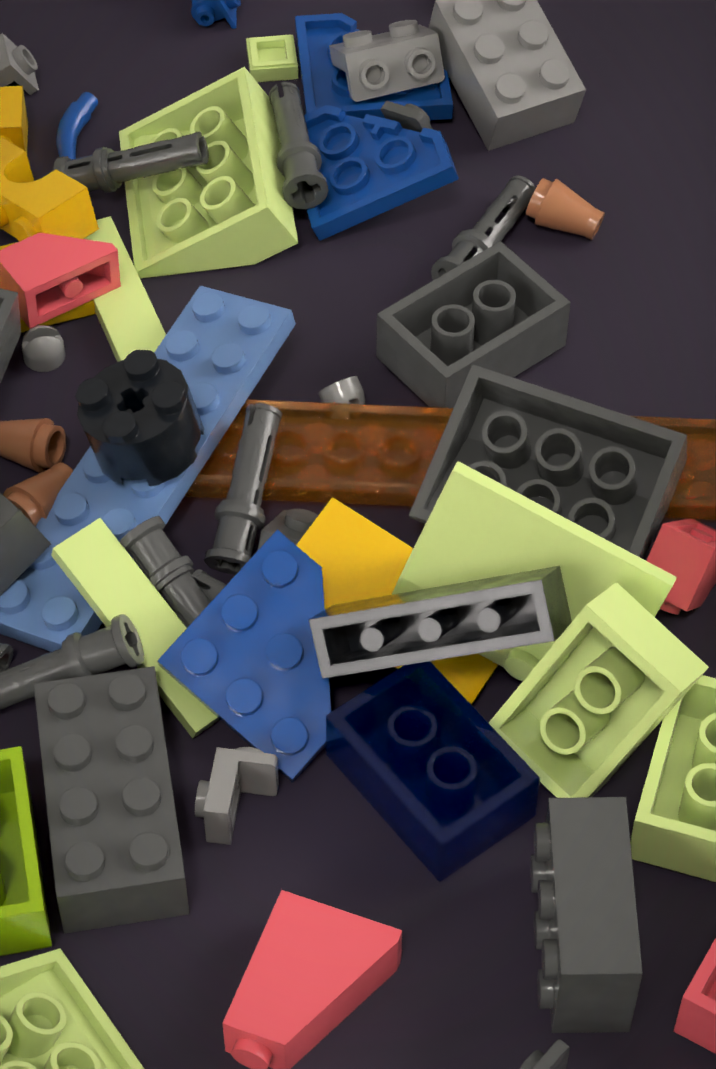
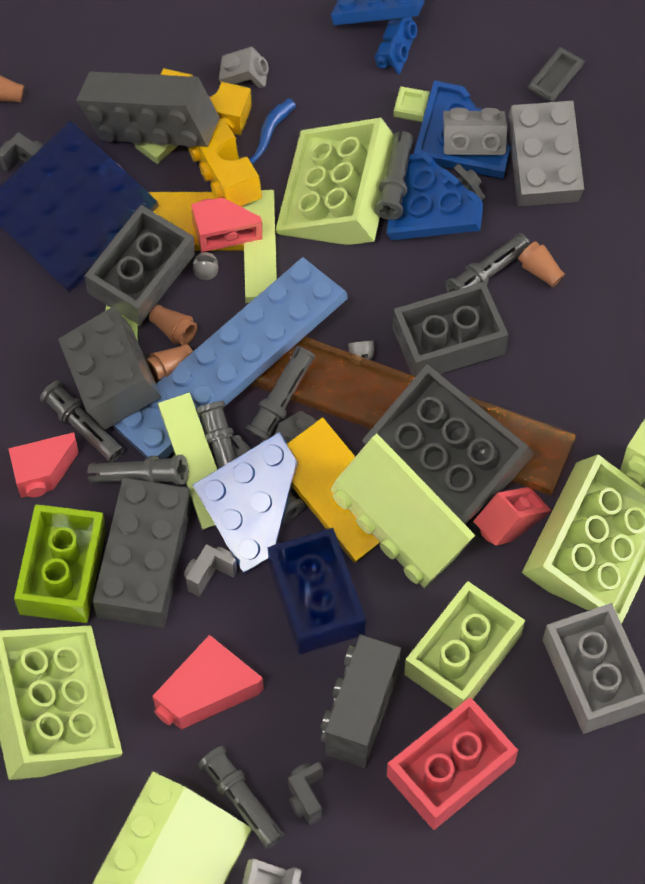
camera: 20 degrees right, 10 degrees up
(109, 169) = (281, 160): dark grey pin -> none
(140, 419) = (232, 339): black brick -> none
(441, 622) = (344, 516): brick -> none
(597, 694) = (411, 584): yellowish green brick -> none

